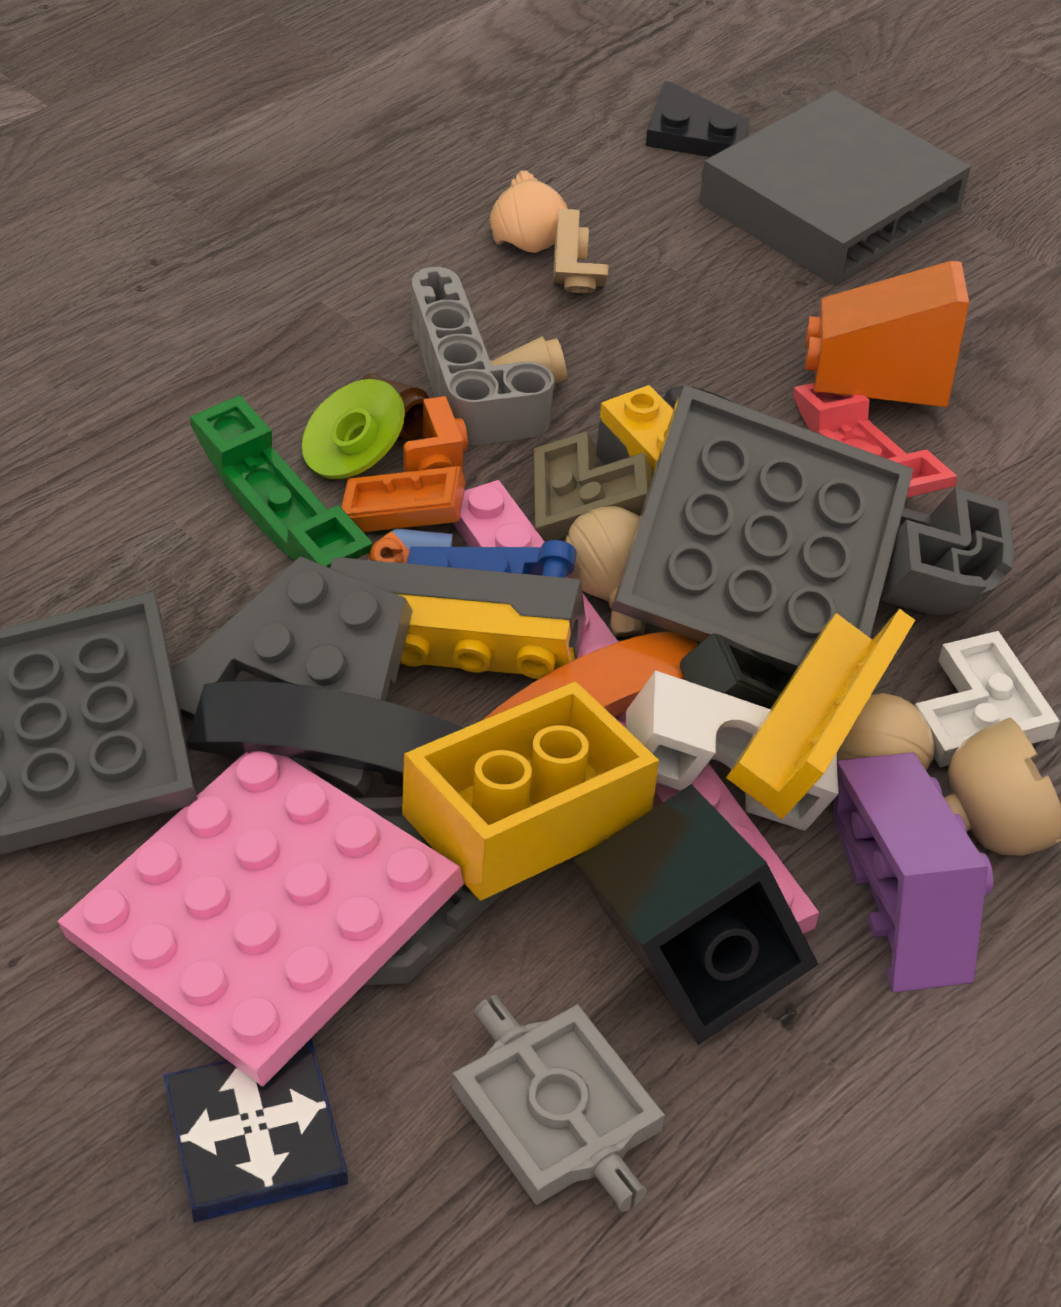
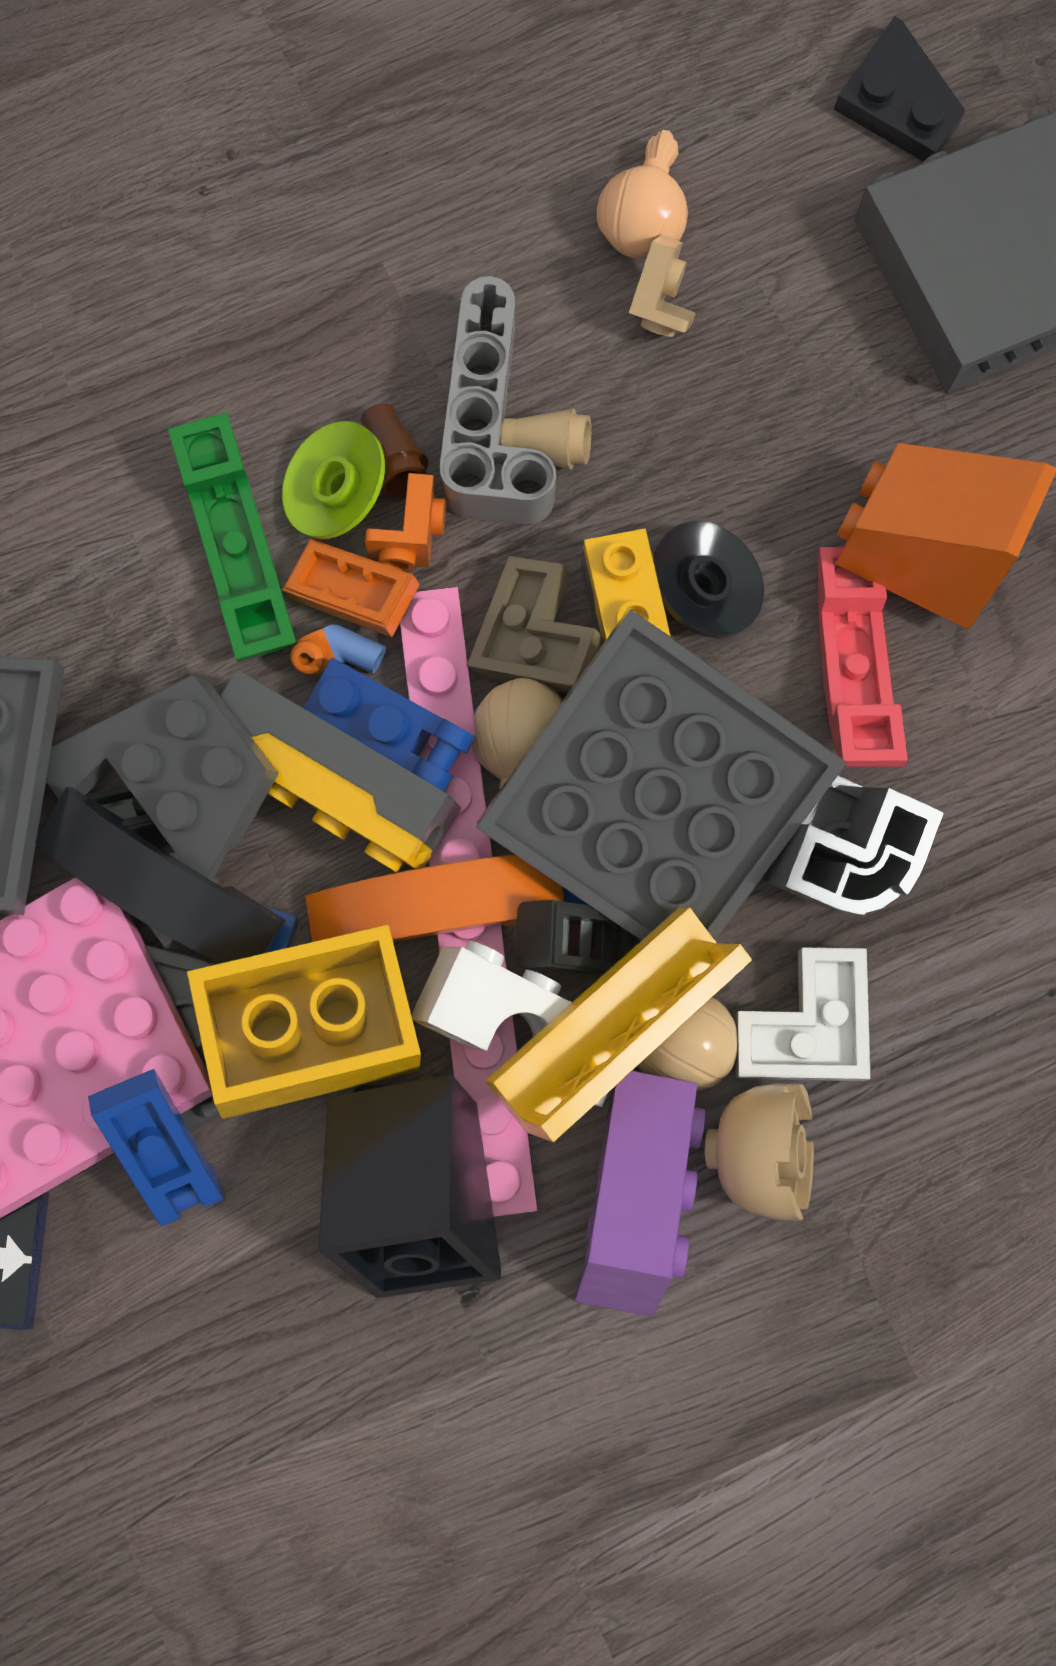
camera: 20 degrees right, 30 degrees up
(429, 932) = (155, 1146): none -> blue plate
(558, 1103) = (223, 1326): light grey plate -> none

